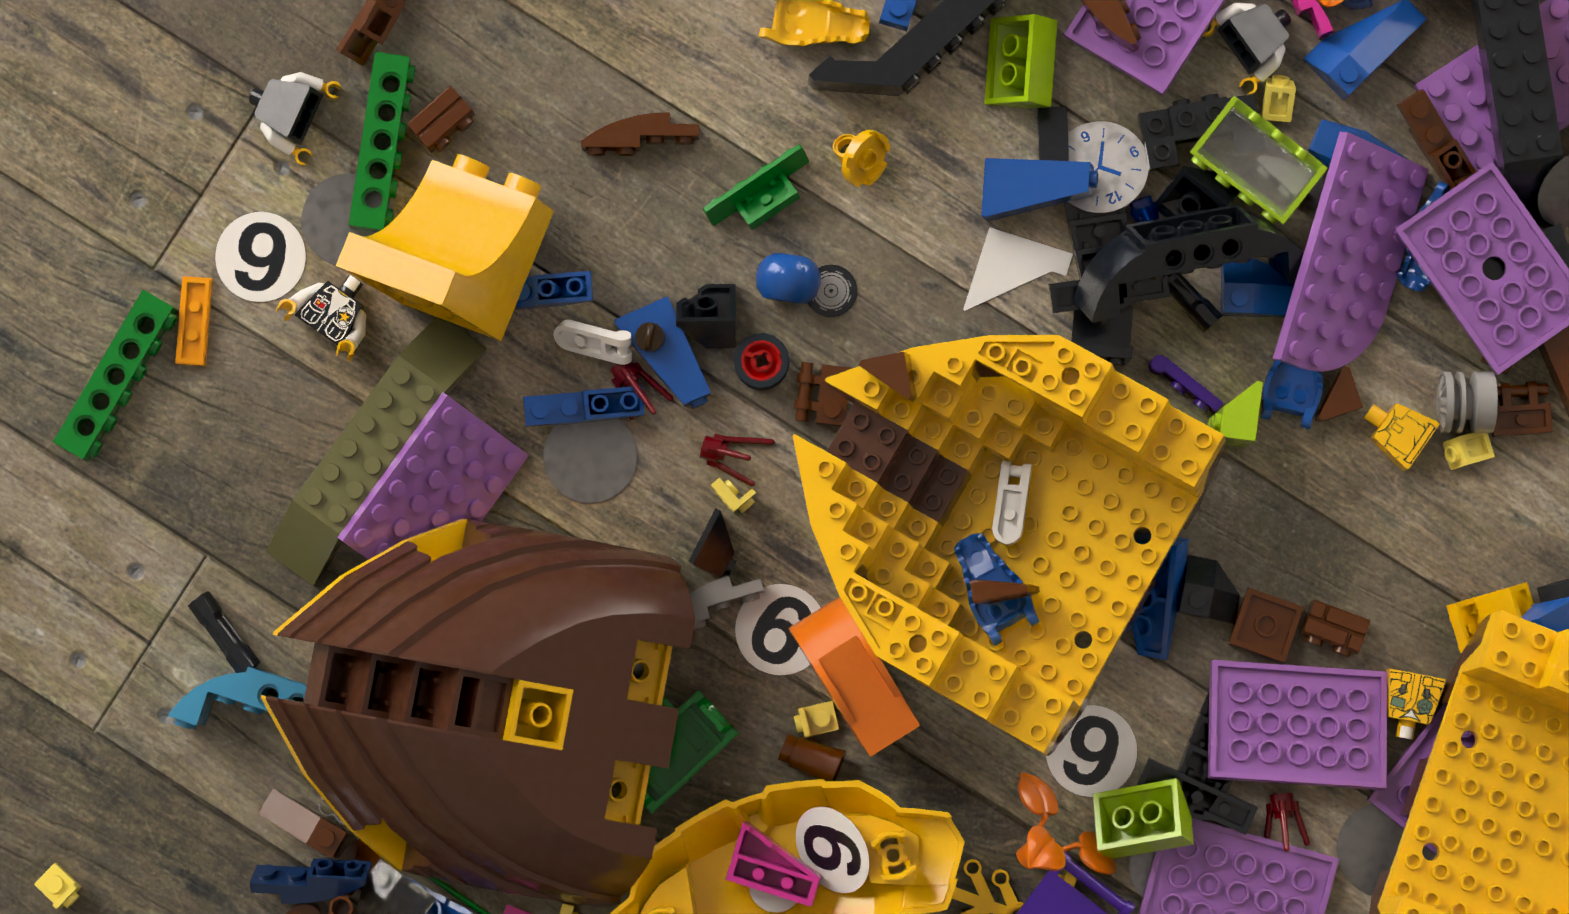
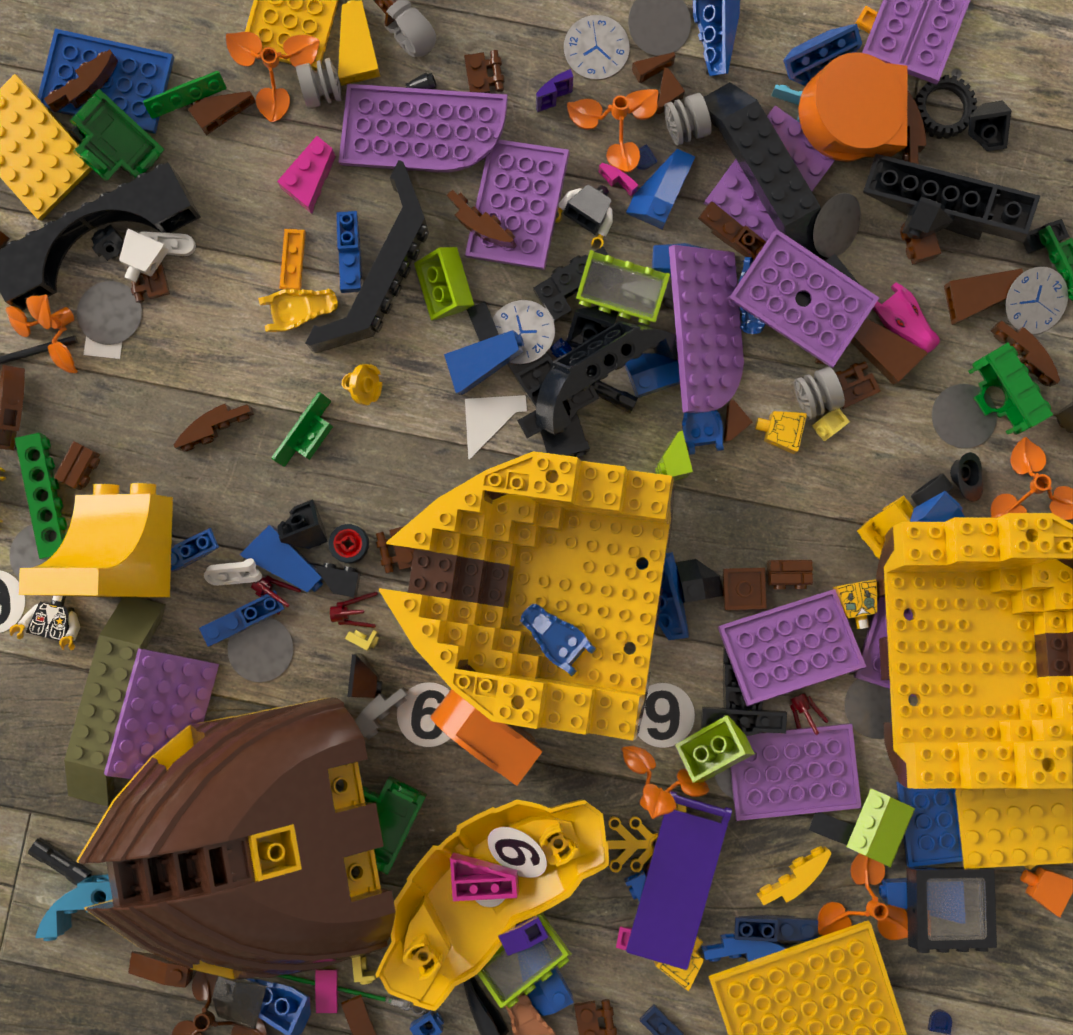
camera: 25 degrees left, 0 degrees up
(320, 882) = (180, 1008): dark blue slope -> none
(649, 337) = (267, 556): dark brown tile -> none
(732, 407) = (339, 581): none -> black slope
(788, 278) = (345, 482): blue piece -> none
(812, 757) = (481, 793): reddish brown plant -> none
(816, 719) = (472, 768): light yellow bracket -> none
(835, 293) = (377, 479): sticker -> none
(893, 371) = (430, 520): reddish brown slope -> none
(995, 591) = (556, 640): reddish brown slope -> none
(1011, 503) = (547, 575): white plate -> none
(1183, 383) = (629, 451): dark purple plate -> none
(1278, 98) = (620, 243): light yellow bracket -> none

